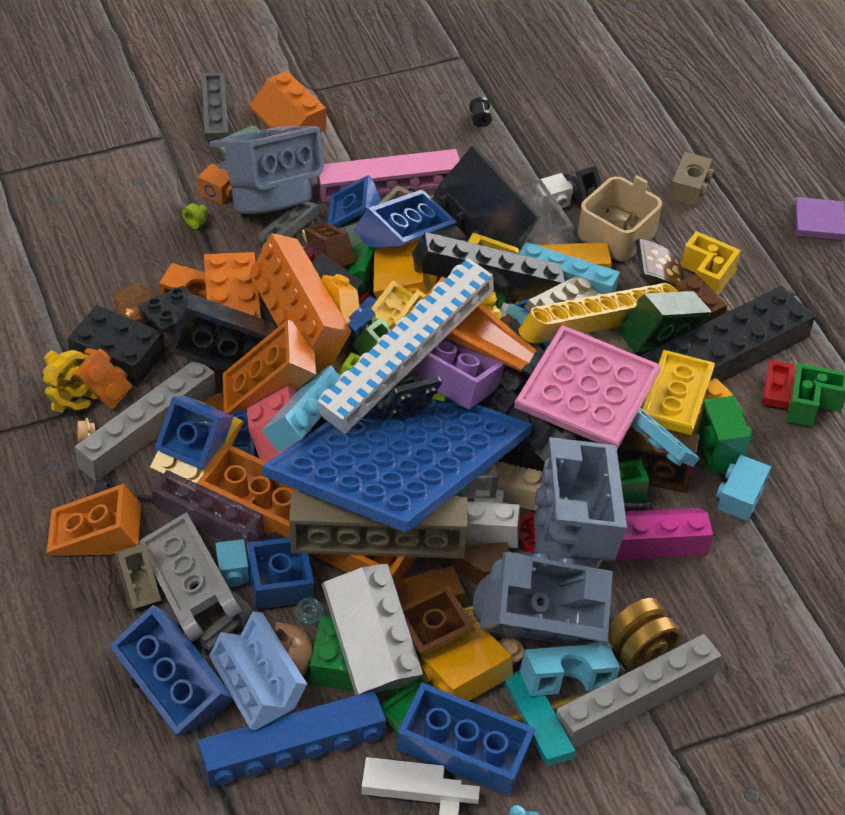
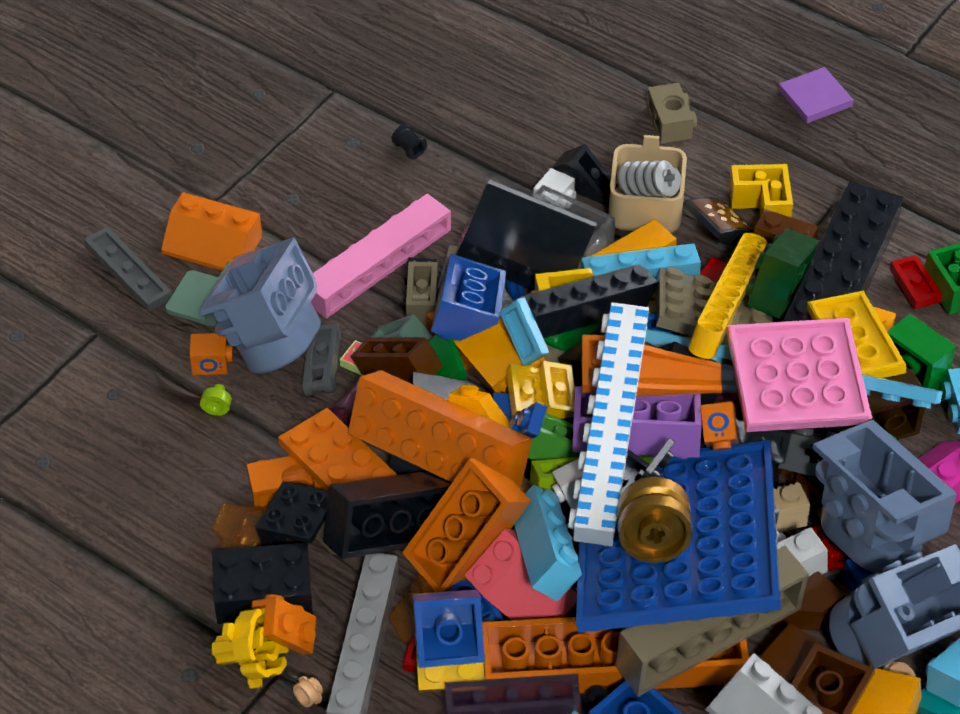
camera: 30 degrees left, 0 degrees up
(352, 202) = (370, 303): blue slope -> none
(373, 424) = (654, 520): none -> pearl gold wheel
(414, 260) = (524, 331): none -> medium azure tile
(498, 392) = (719, 425): none -> orange brick
(614, 207) = (649, 178): none -> light grey piece

